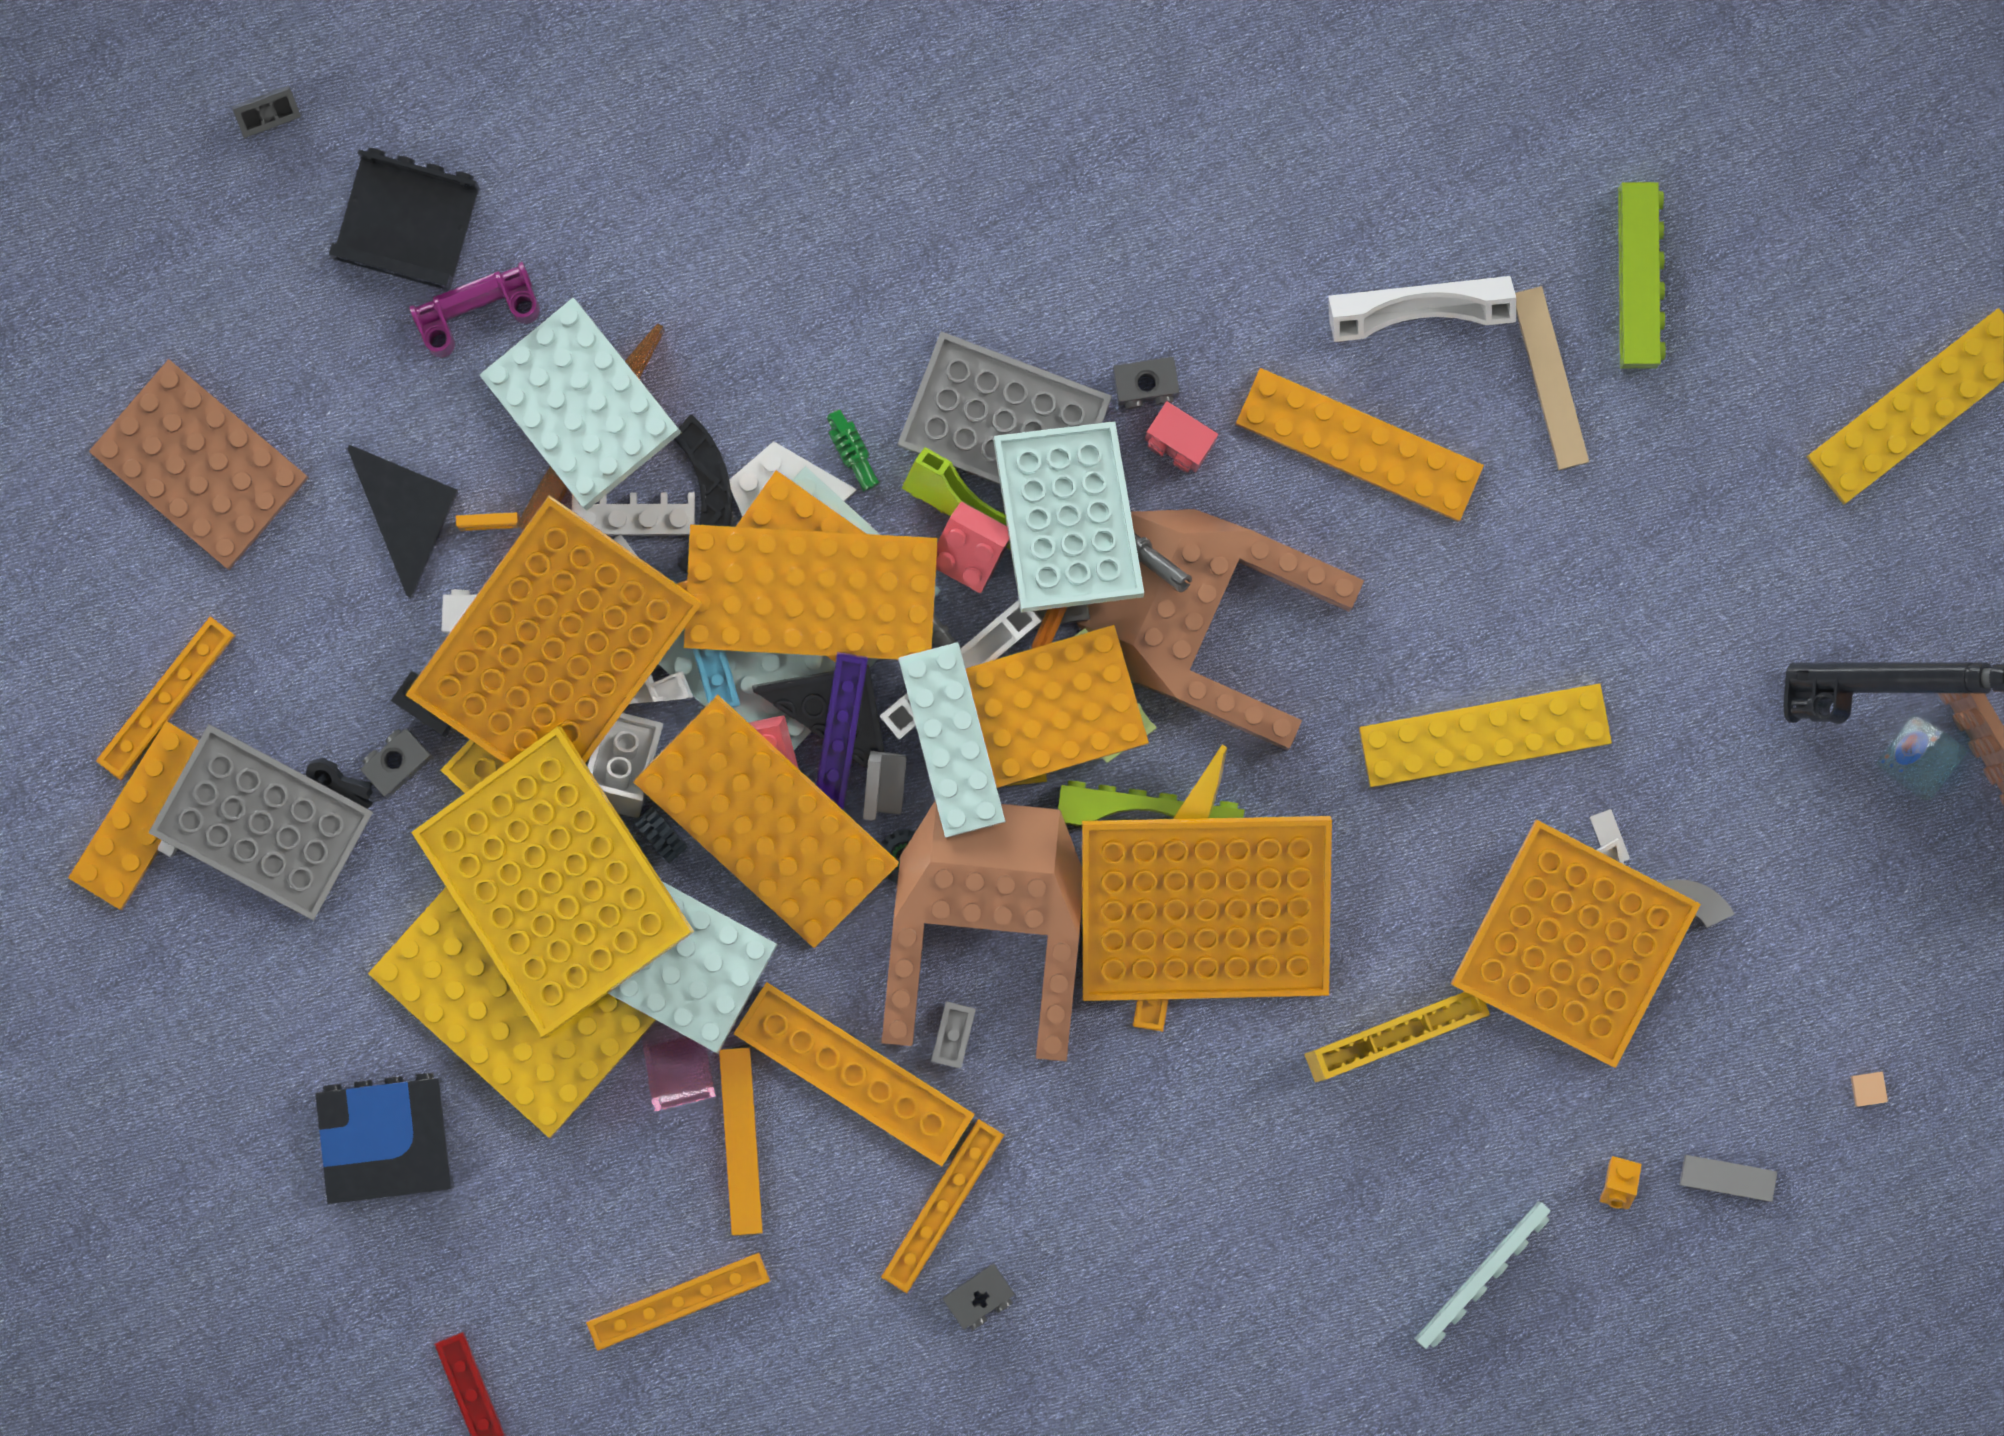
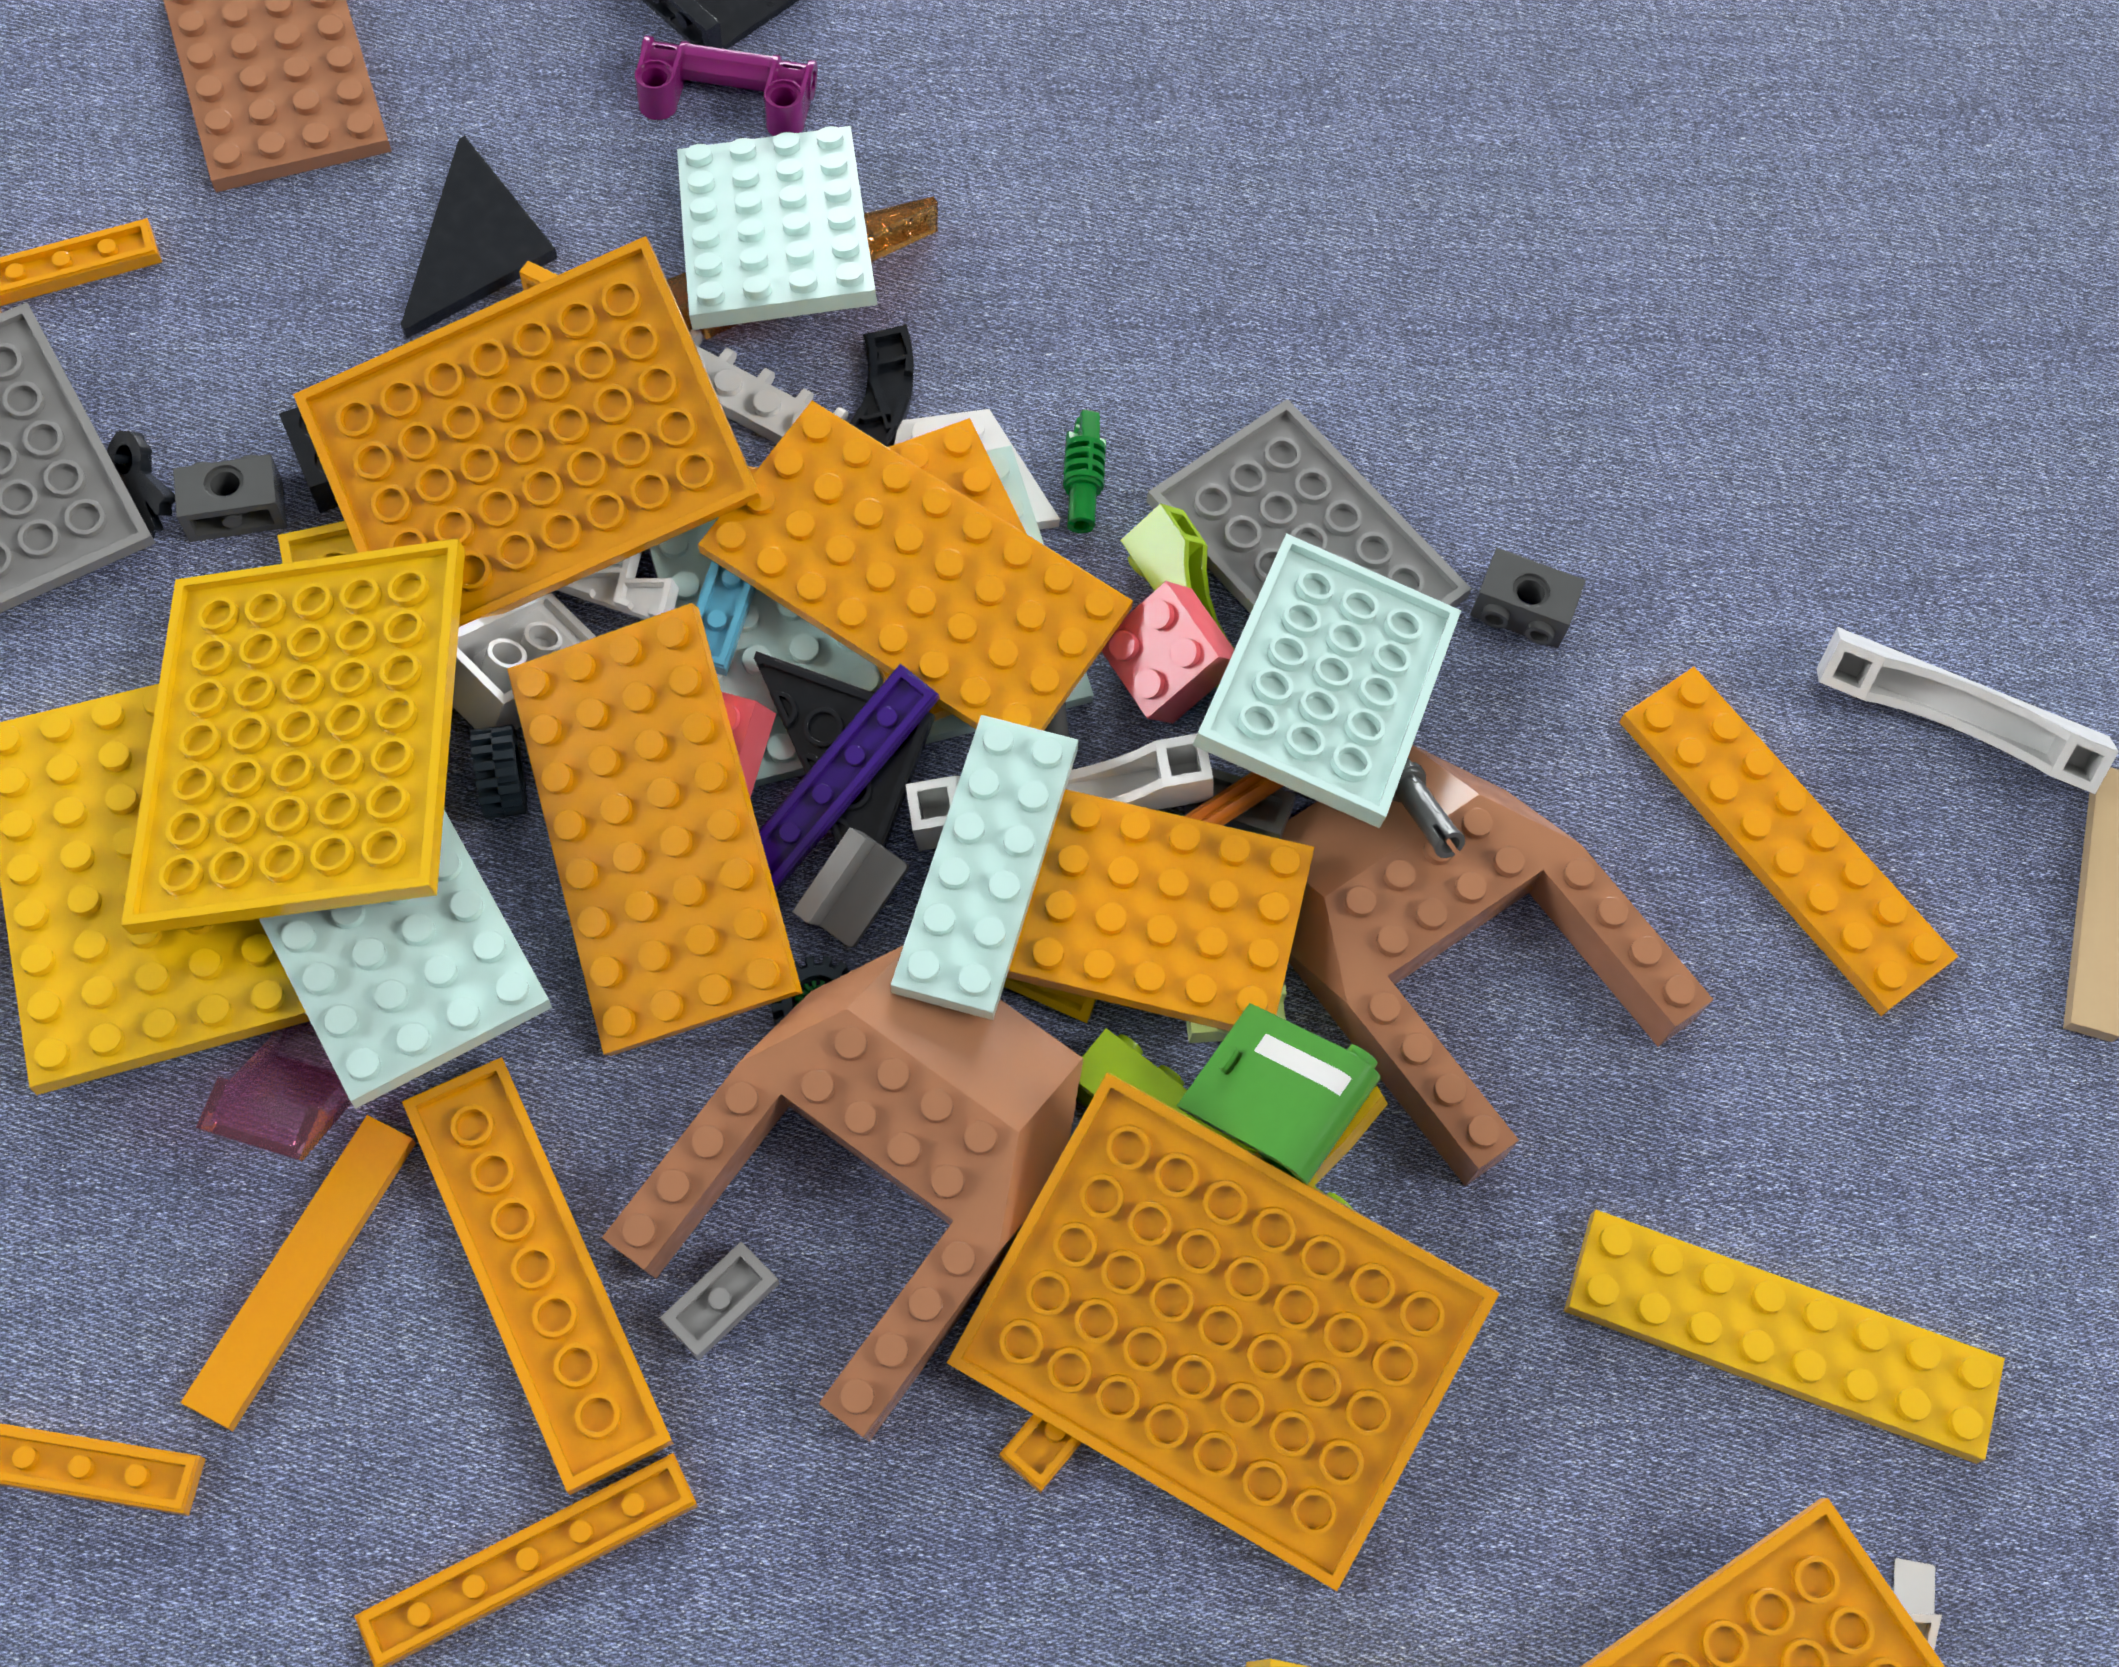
camera: 25 degrees right, 20 degrees down
(1171, 778) = (1281, 1090): none -> bright green door
(1180, 438) = (1542, 678): coral brick -> none

